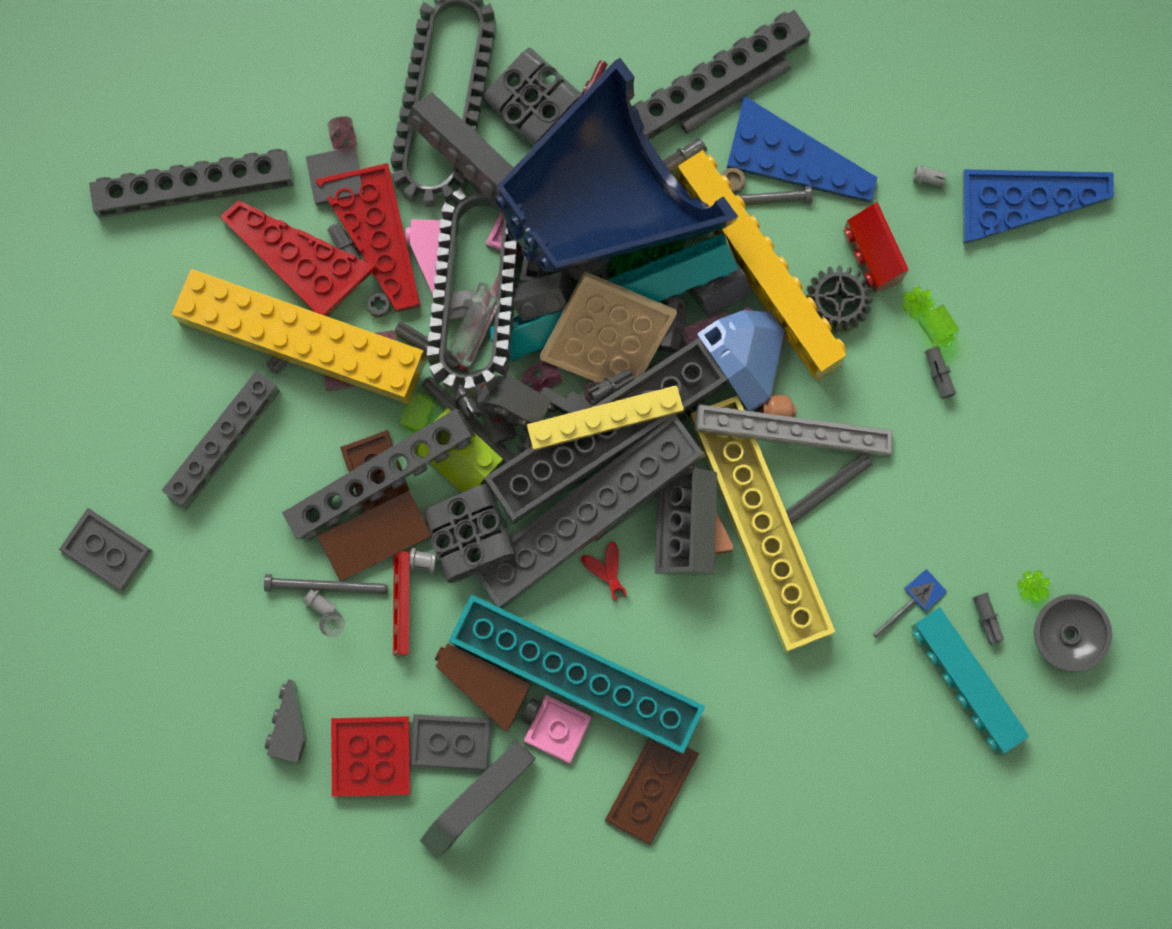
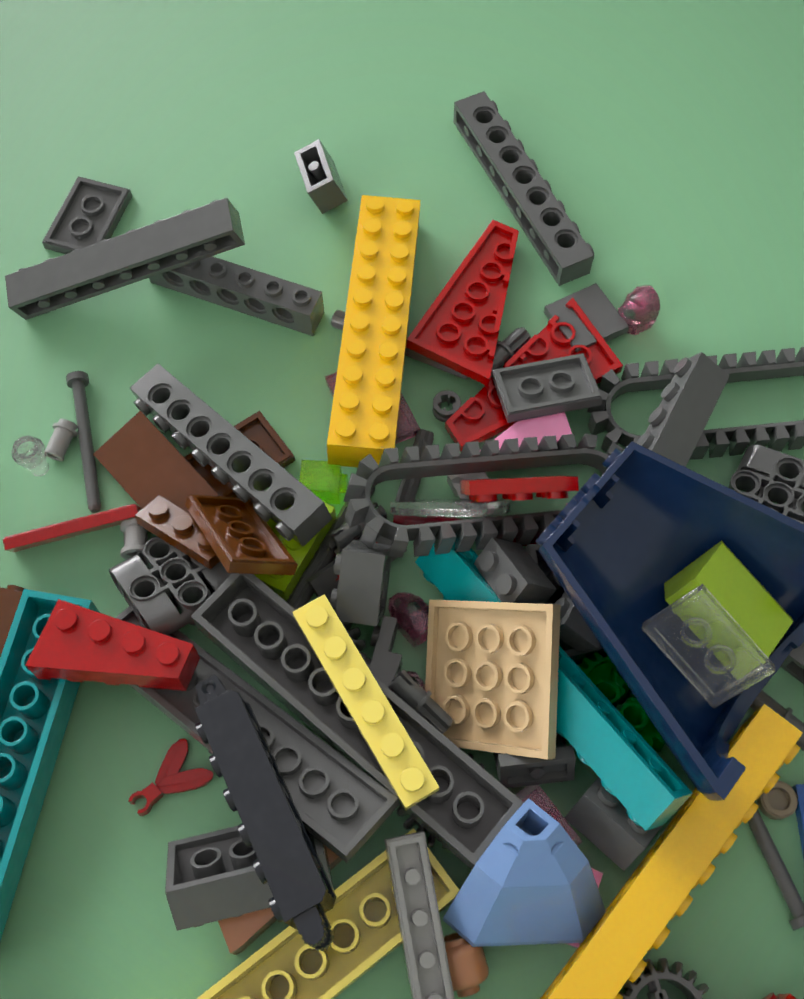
camera: 75 degrees right, 15 degrees down
(133, 343) = (320, 176): none -> dark grey brick
(181, 518) = (125, 259): none -> dark grey brick
(393, 226) = (546, 387): none -> dark grey tile
(435, 519) = (177, 529): none -> reddish brown plate
(455, 477) = (240, 536): none -> reddish brown tile
(481, 272) = (519, 488): none -> red plate
(518, 583) = (101, 648): none -> red wedge
(610, 164) = (737, 592): none -> lime slope
(633, 187) = (708, 646): none -> clear tile
(656, 495) = (267, 813): none -> black hinge

